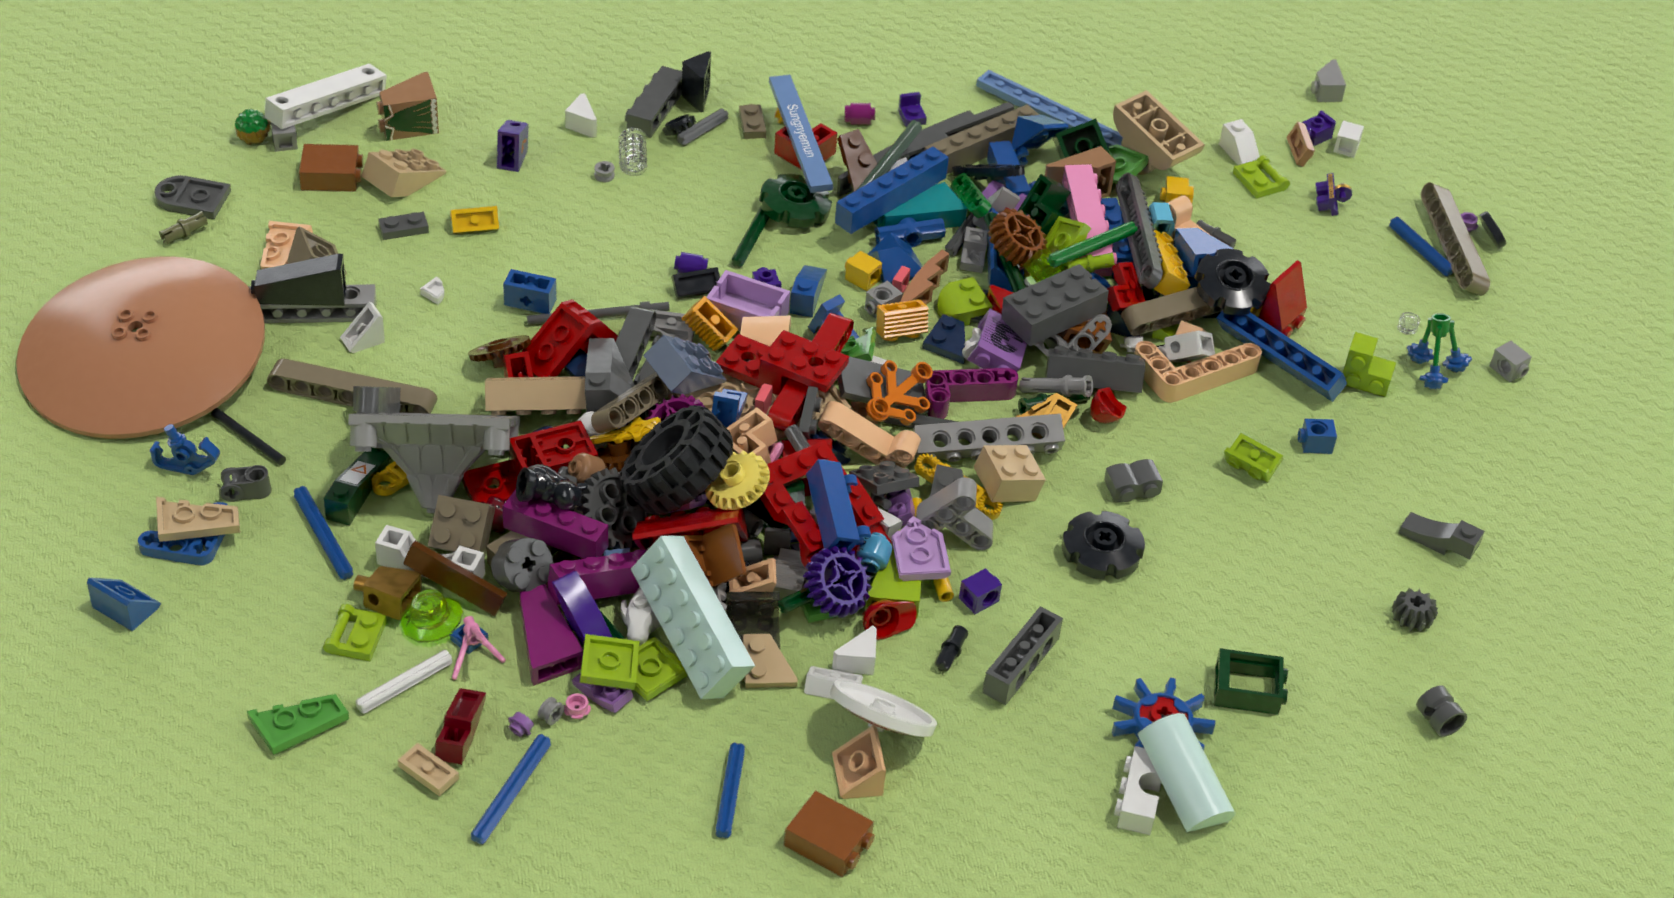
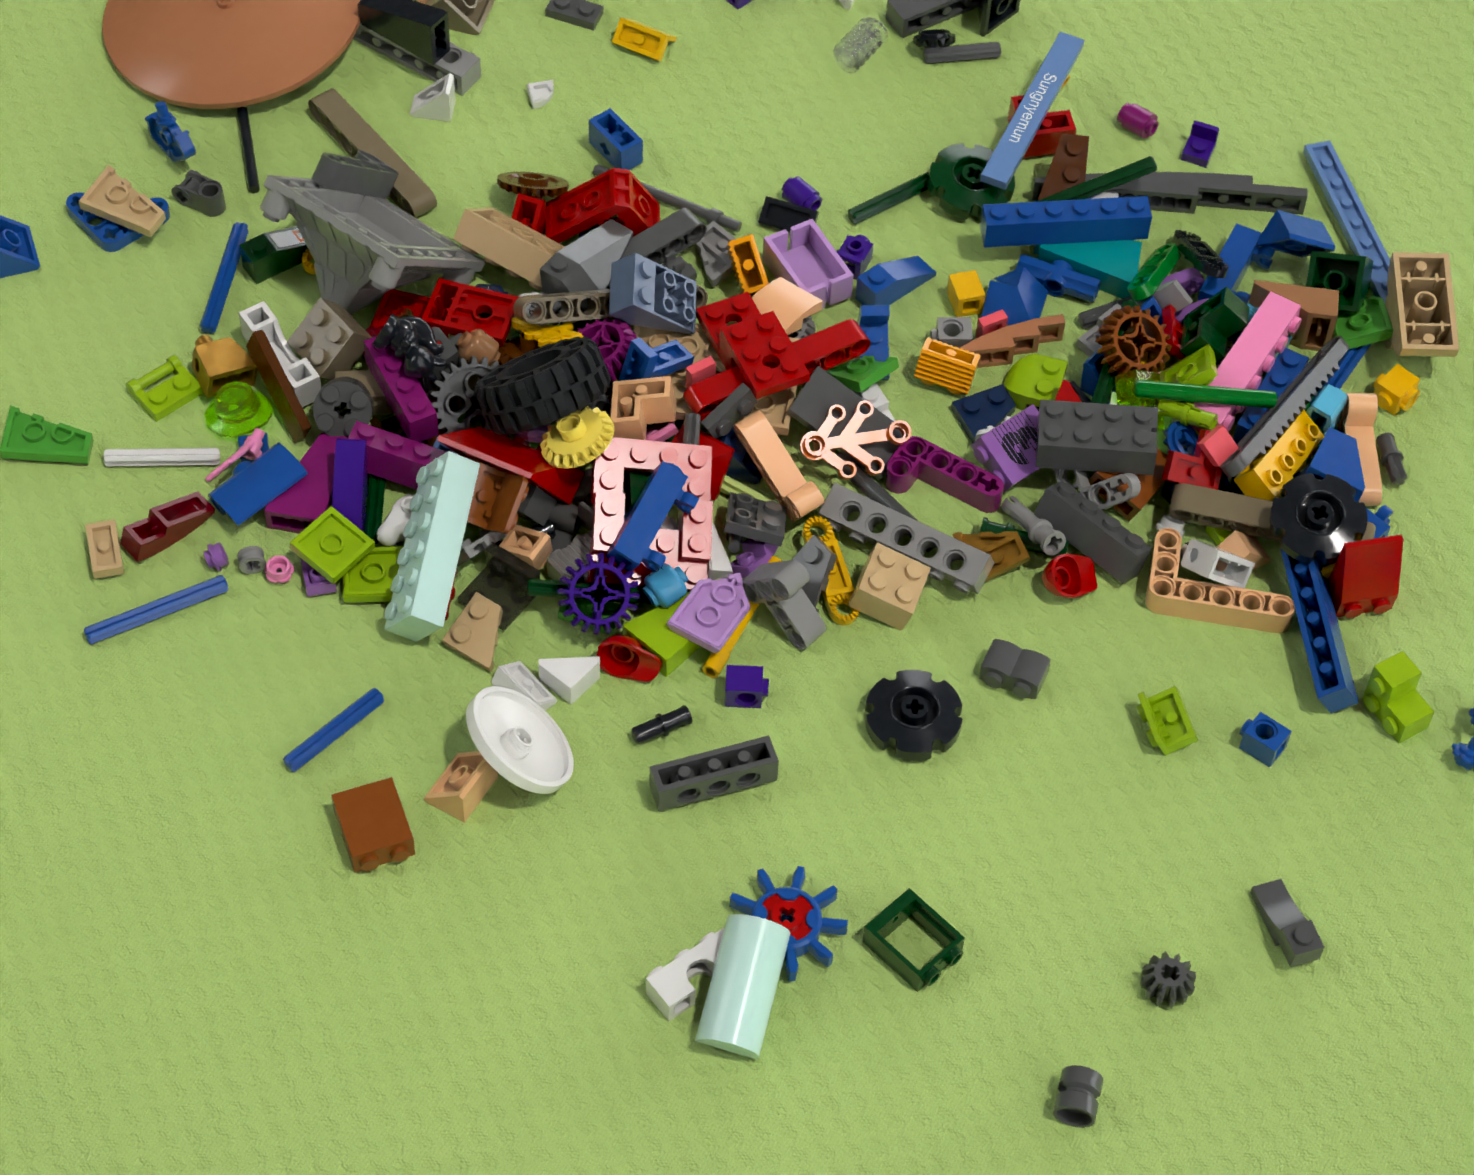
camera: 40 degrees right, 10 degrees up
(507, 653) = (257, 483): none -> blue panel
(604, 171) = (816, 45): light grey bush -> none
(752, 121) = (1020, 72): dark tan plate -> none
(973, 143) = (1217, 215): dark tan brick -> none
(1132, 270) = (1218, 445): none -> coral tile

